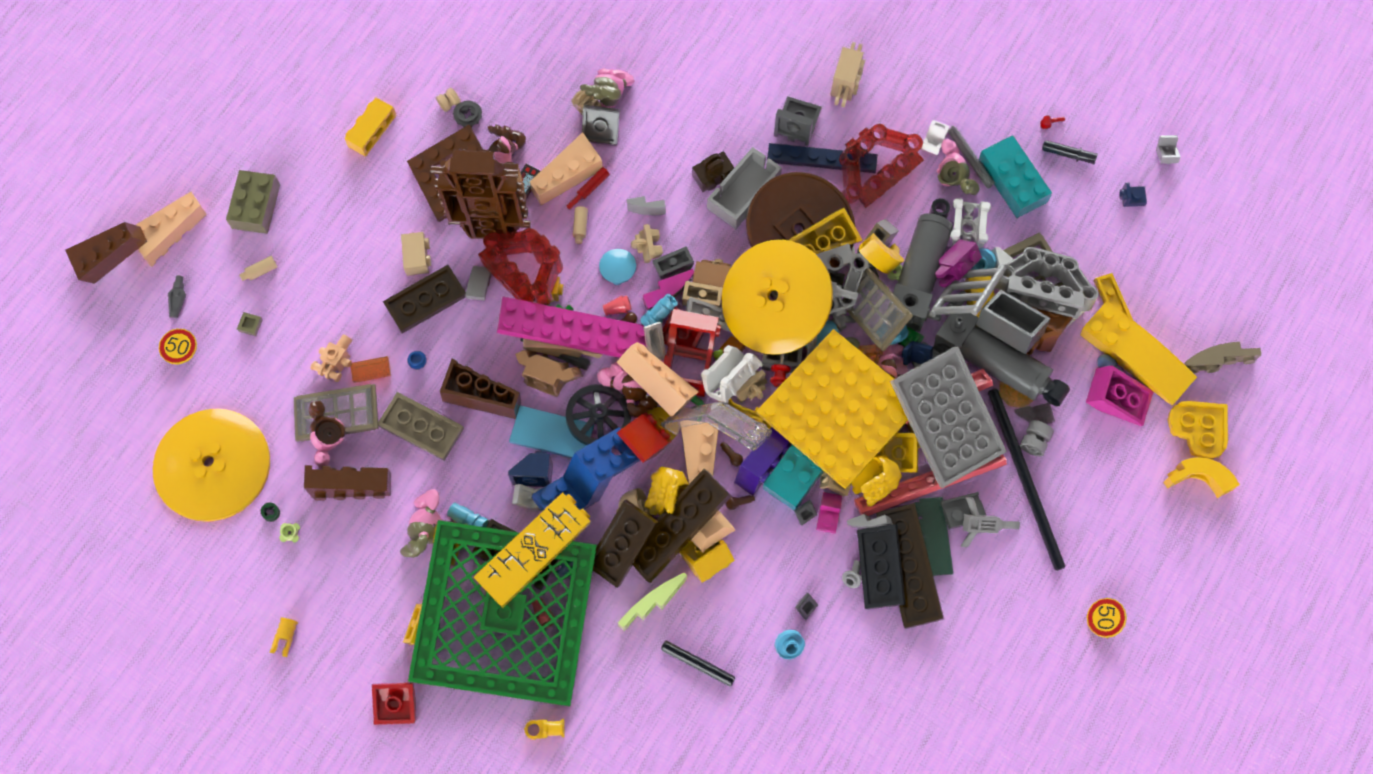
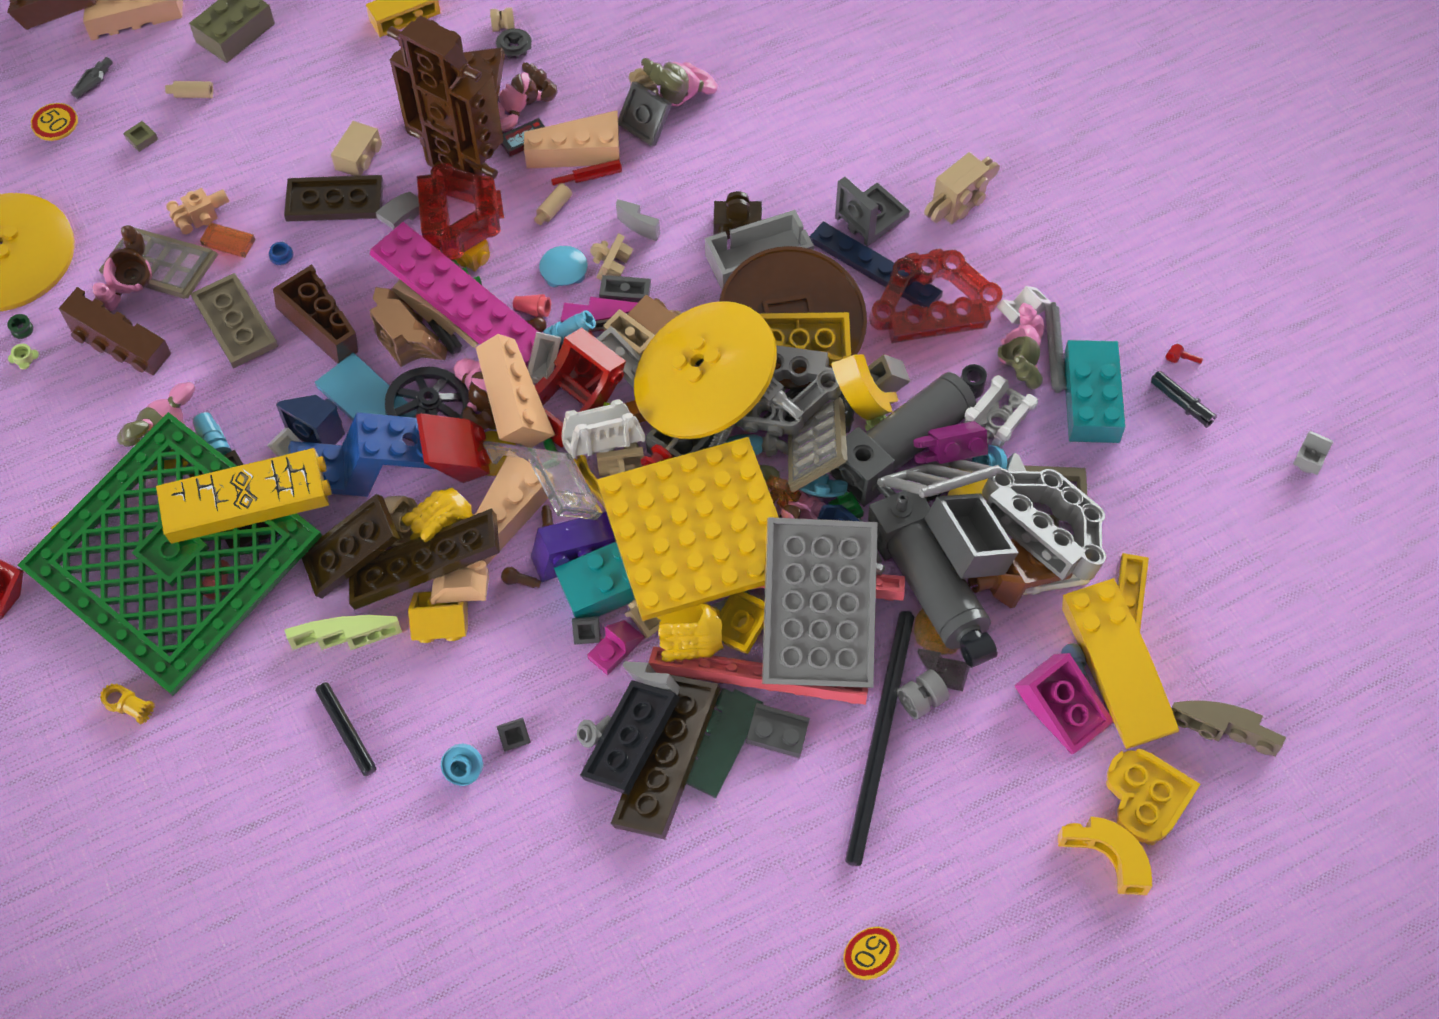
camera: 30 degrees right, 10 degrees down
(983, 523) = (780, 750): light grey piece -> none
(1133, 195) = (1233, 485): dark blue bracket -> none

